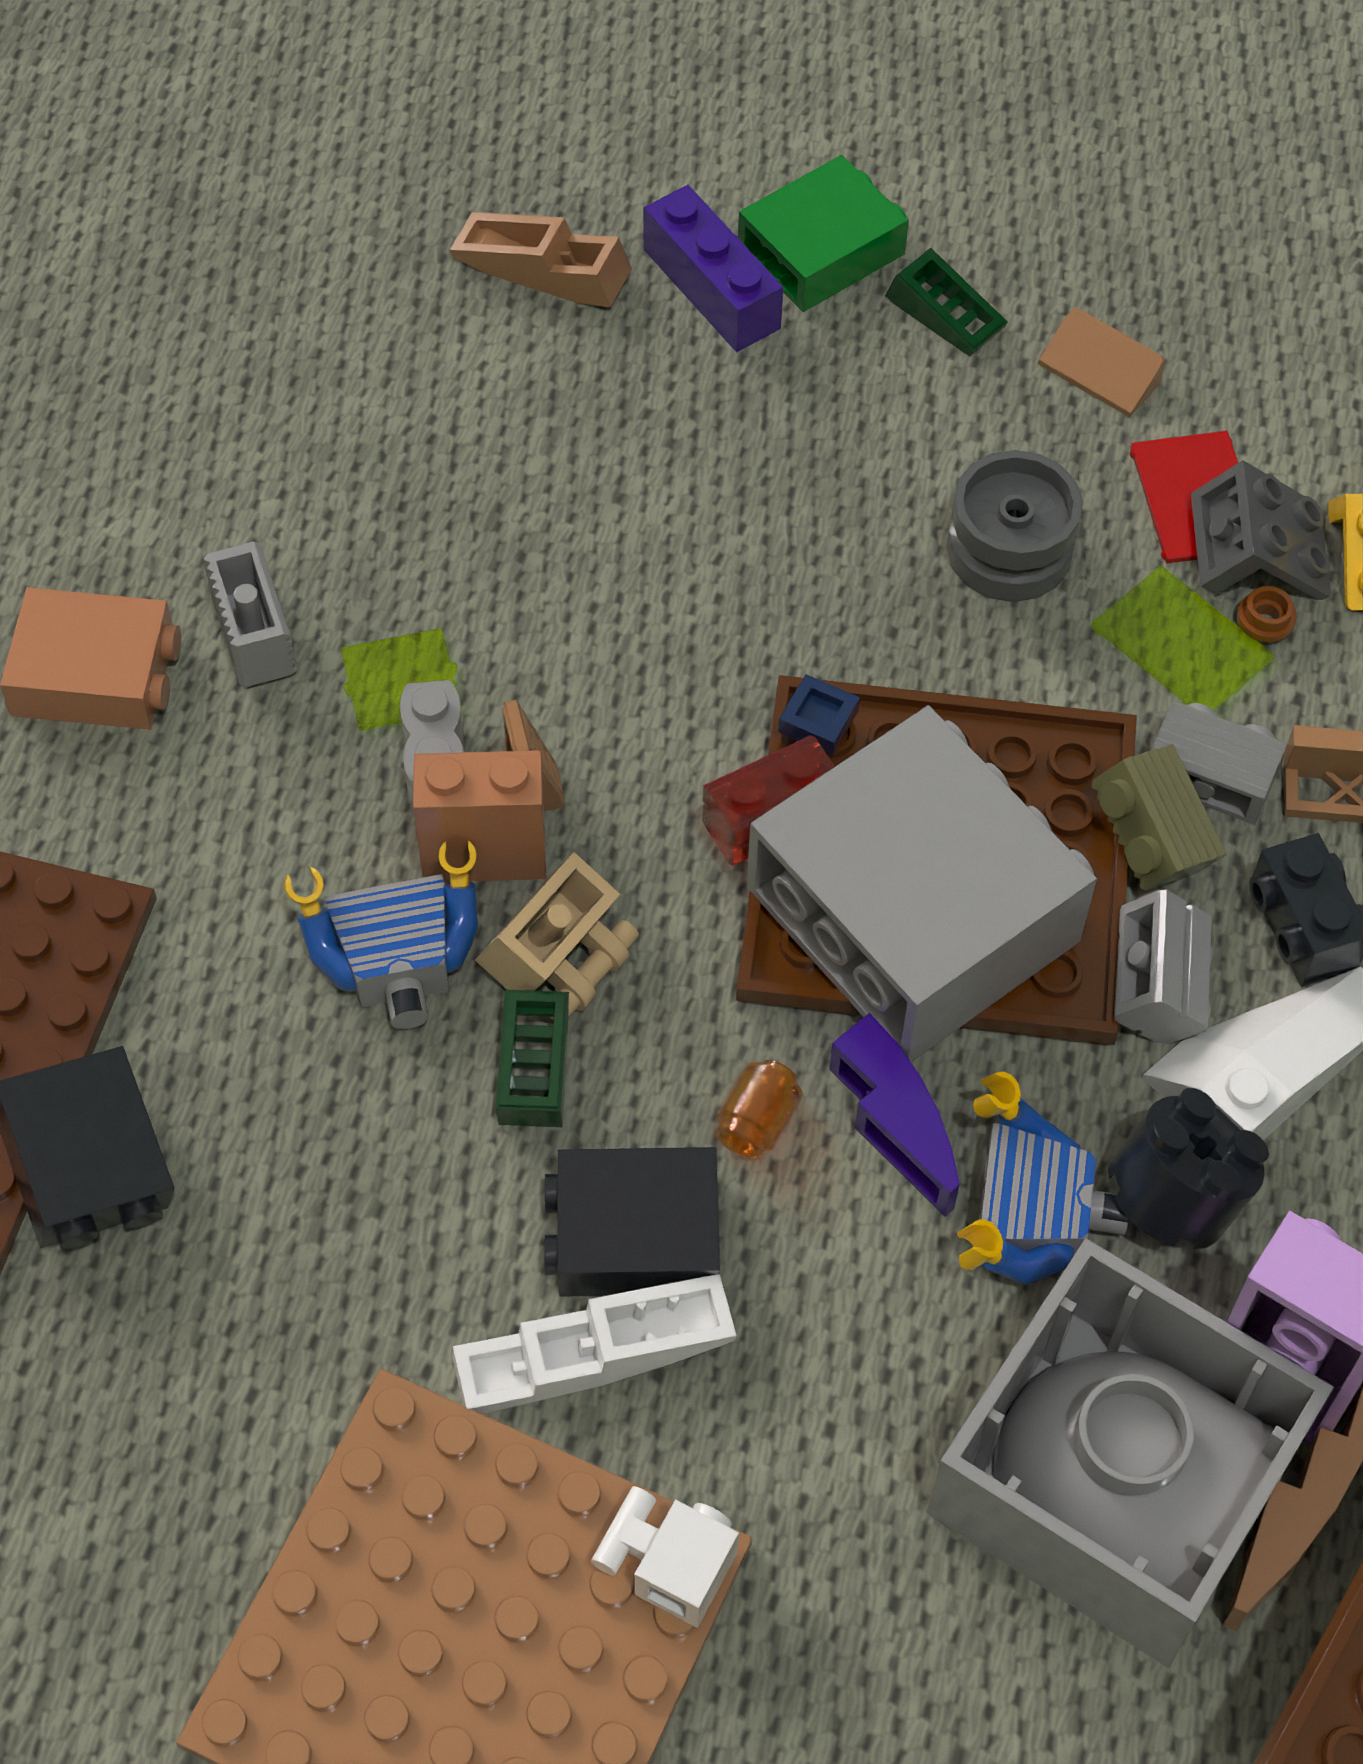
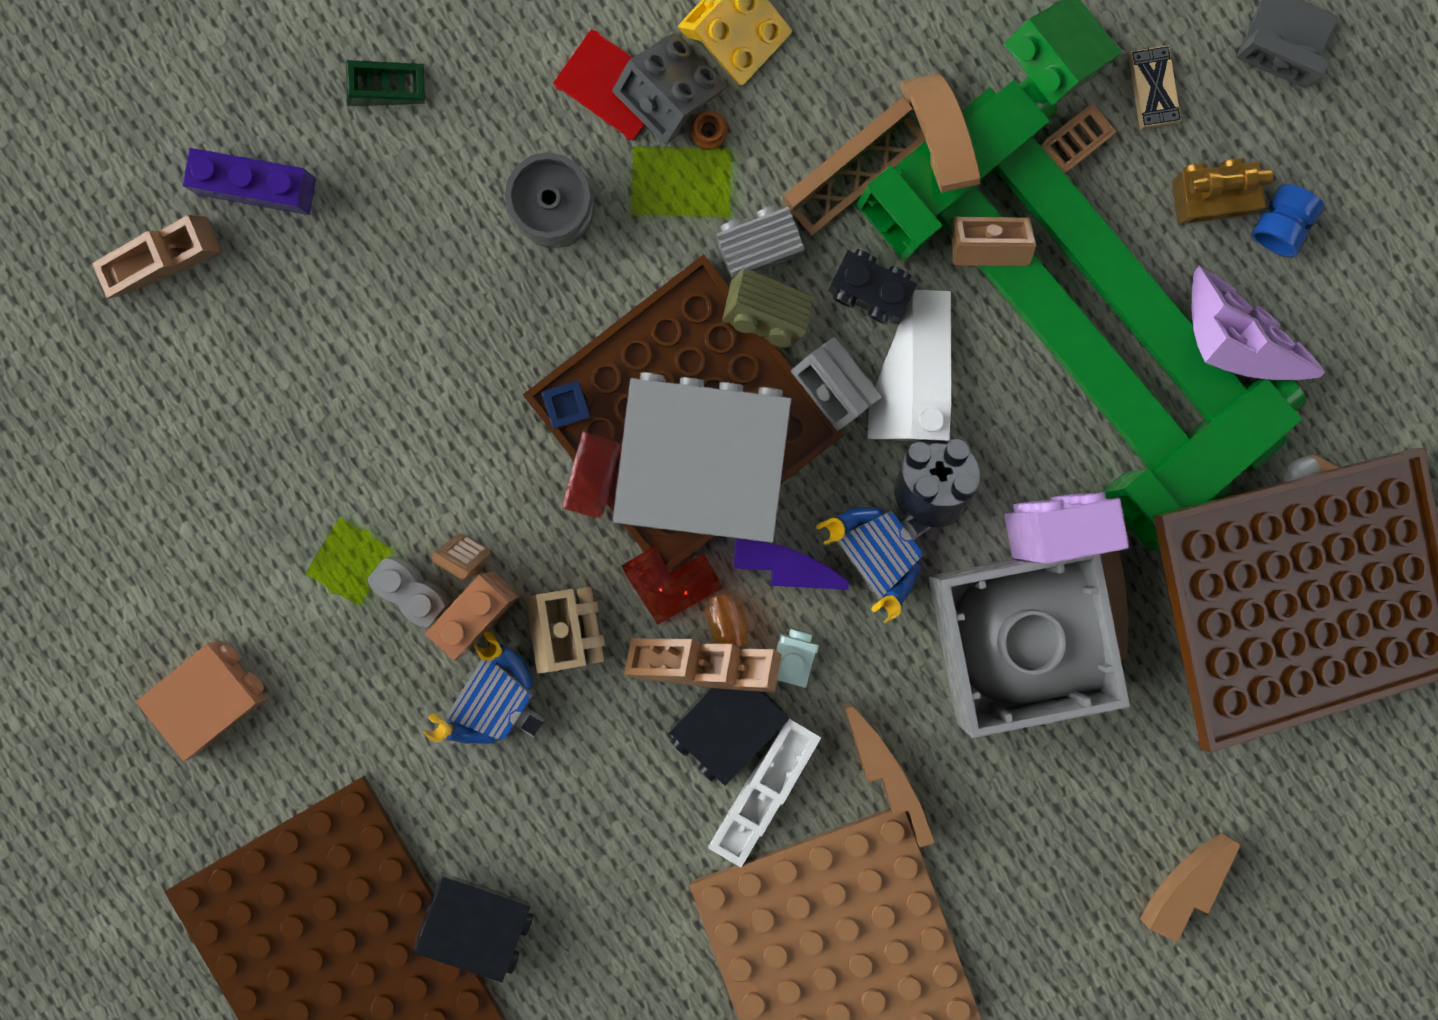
camera: 45 degrees left, 30 degrees up
(250, 614) = (250, 608): light grey brick -> none
(532, 1110) = (627, 720): dark green slope -> none
(673, 1107) = (703, 664): none -> medium nougat slope
(680, 1560) = (894, 856): white brick -> none
(718, 1005) = (666, 591): none -> clear red plate
(776, 1450) = (880, 764): none -> medium nougat slope
(798, 1228) = (796, 657): none -> light aqua bracket
(824, 232) = (280, 99): green brick -> none
(1103, 362) = (494, 46): medium nougat slope -> none

